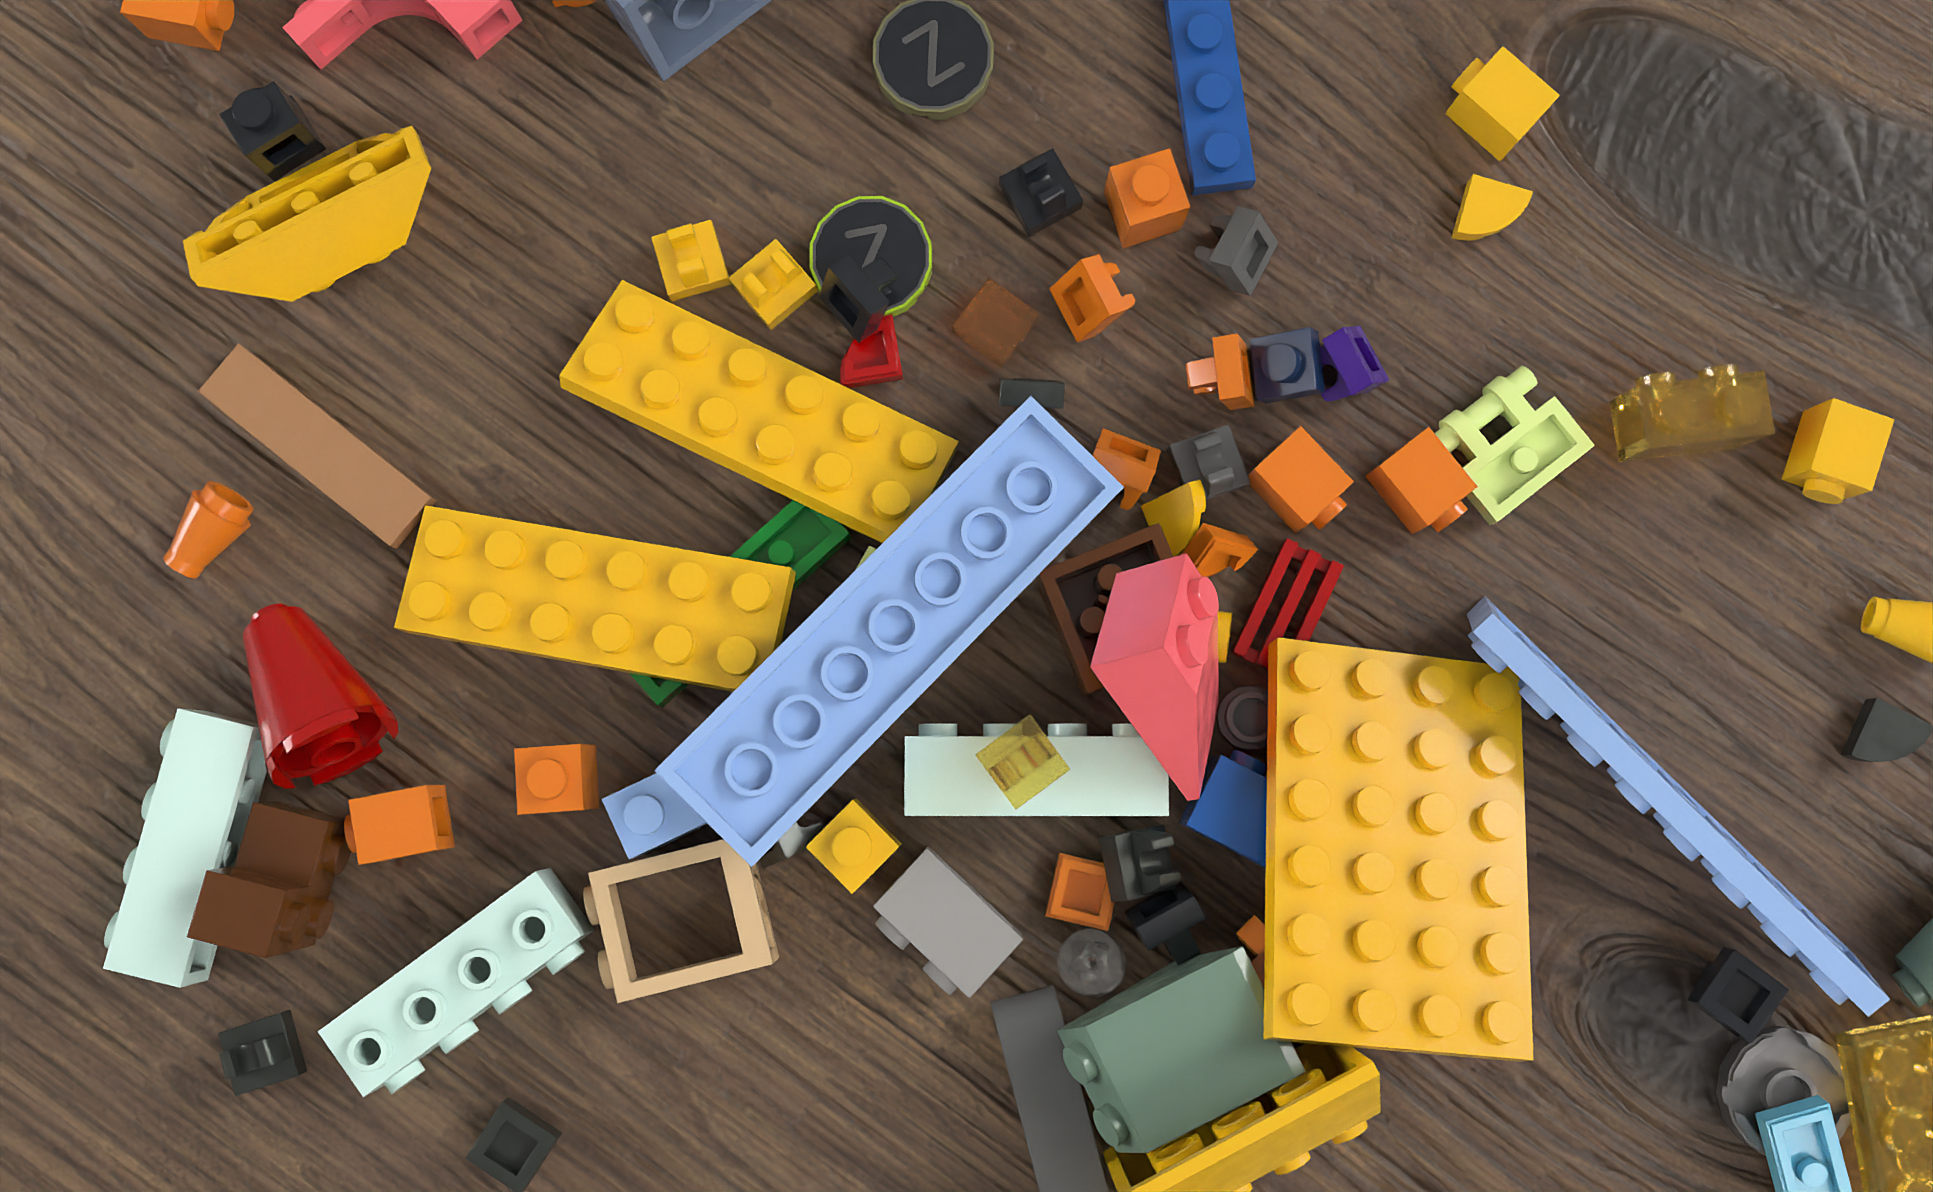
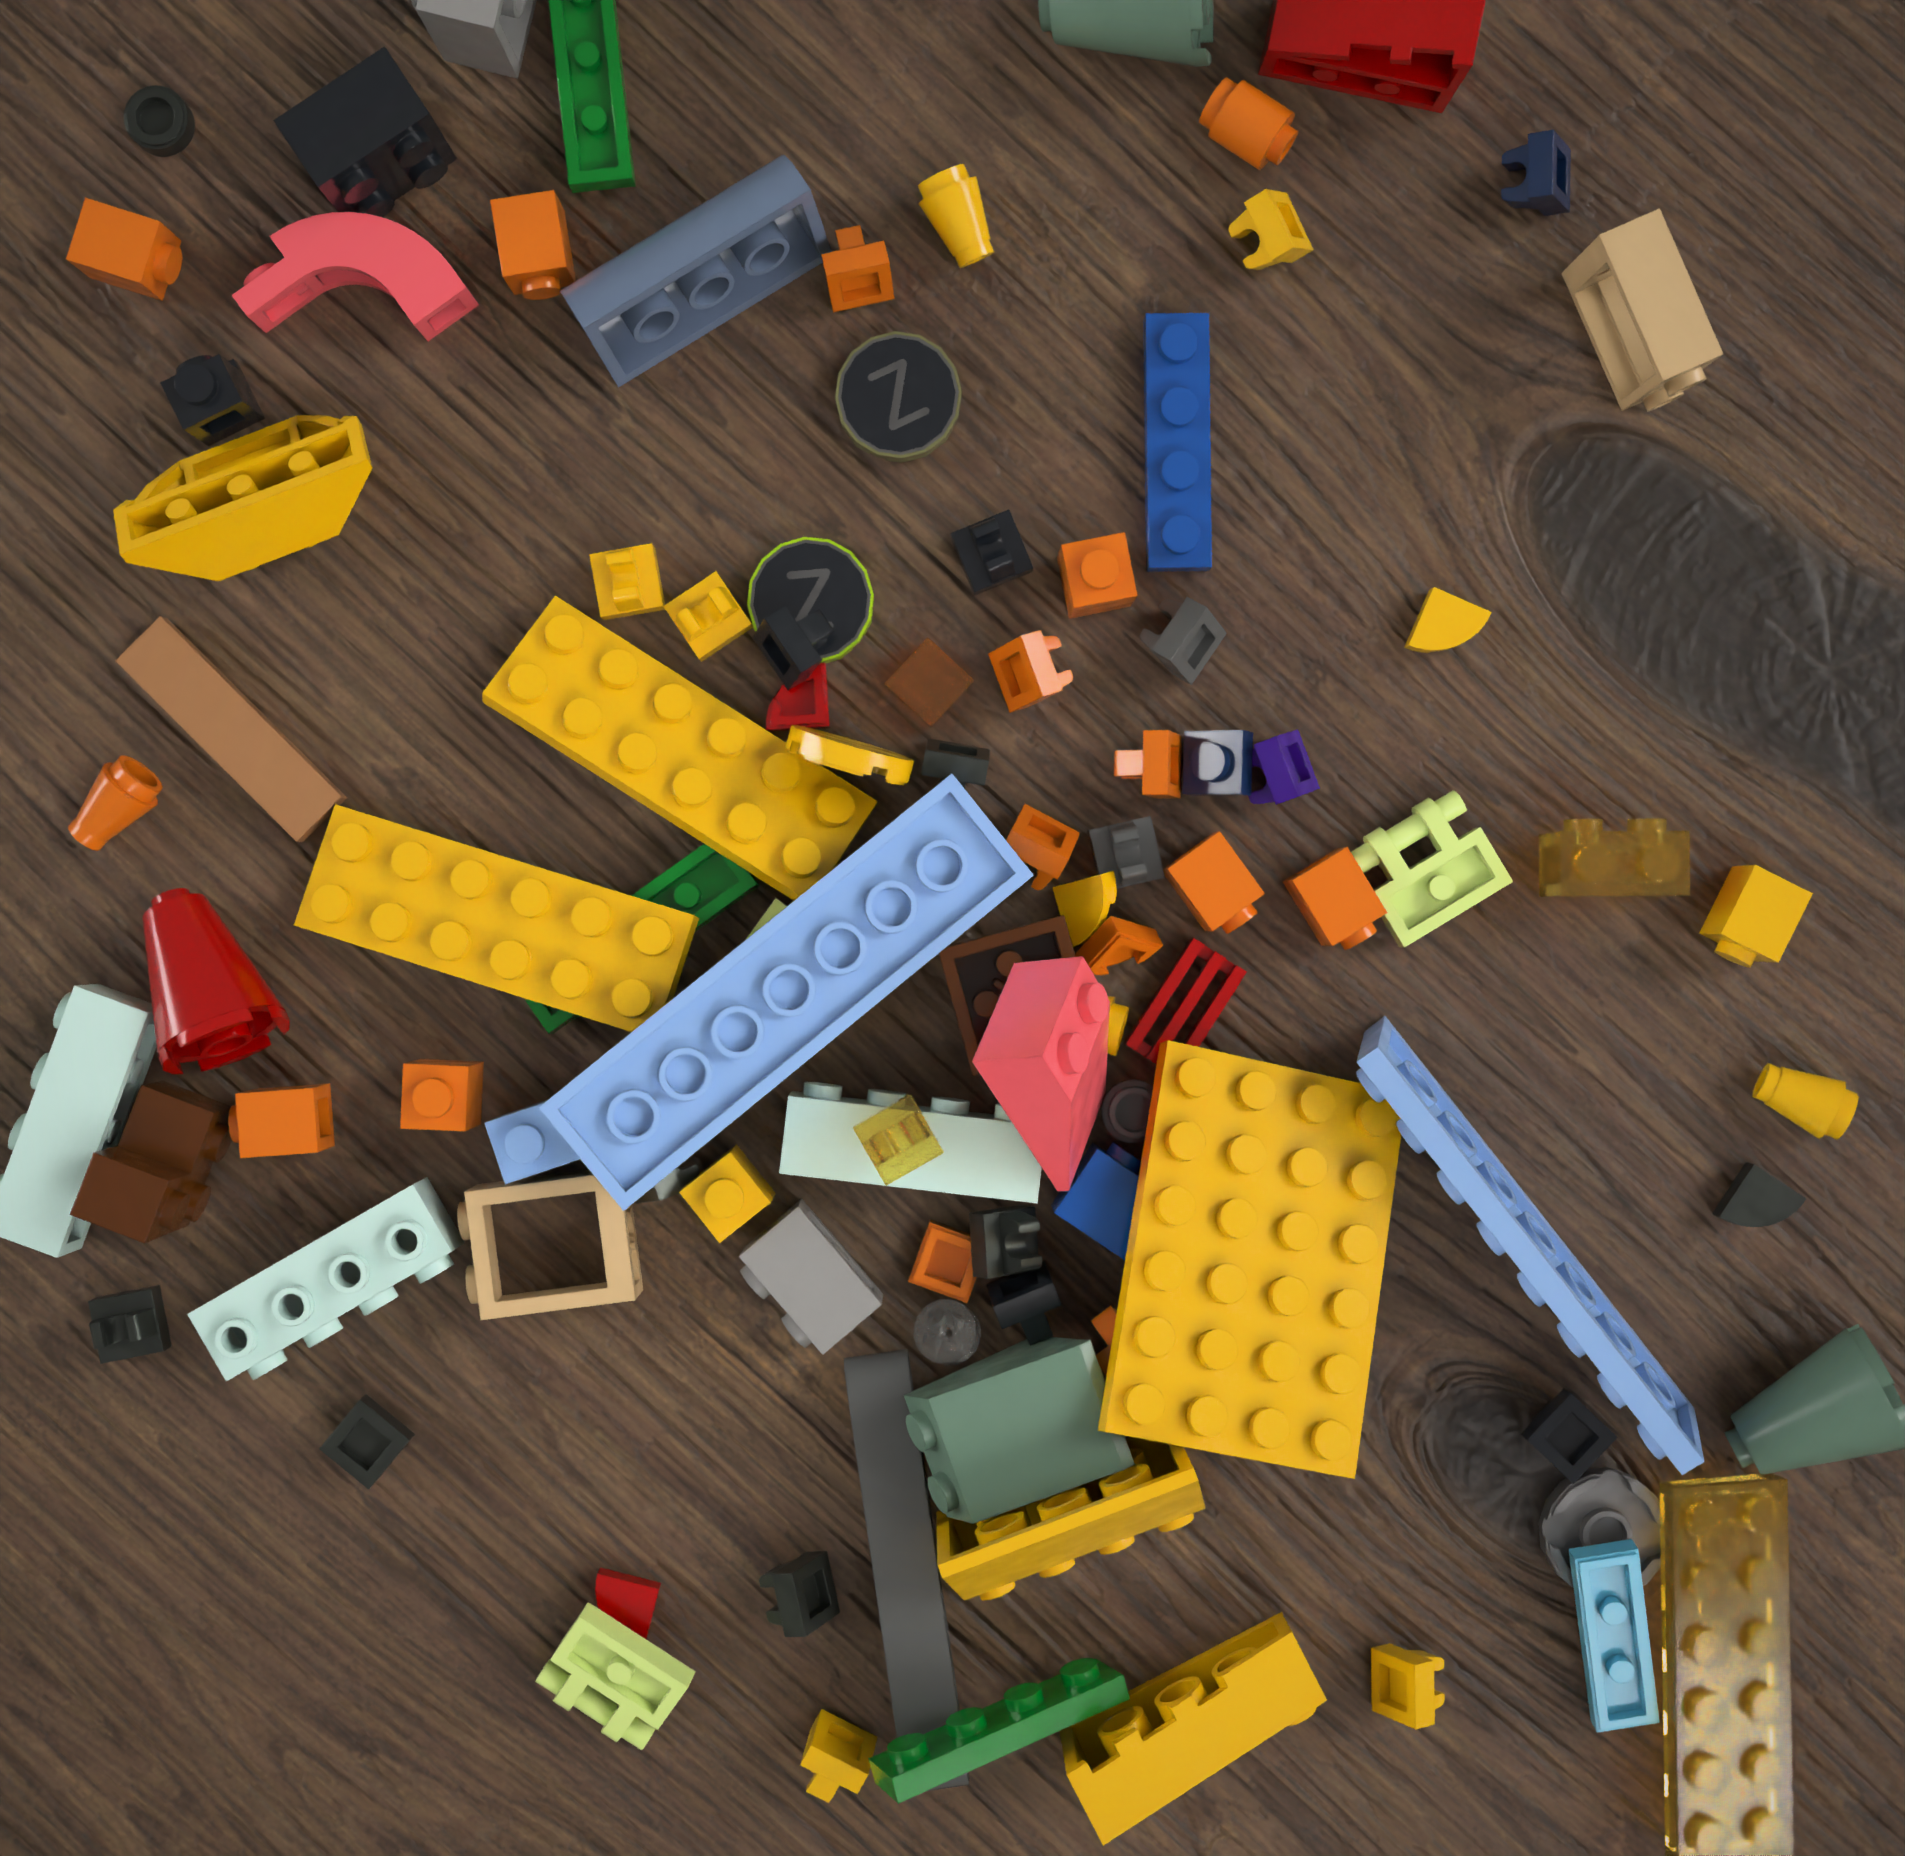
camera: 15 degrees right, 5 degrees up
(927, 393) = (848, 754): none -> yellow tile
(1499, 101) = (1470, 515): yellow brick -> none

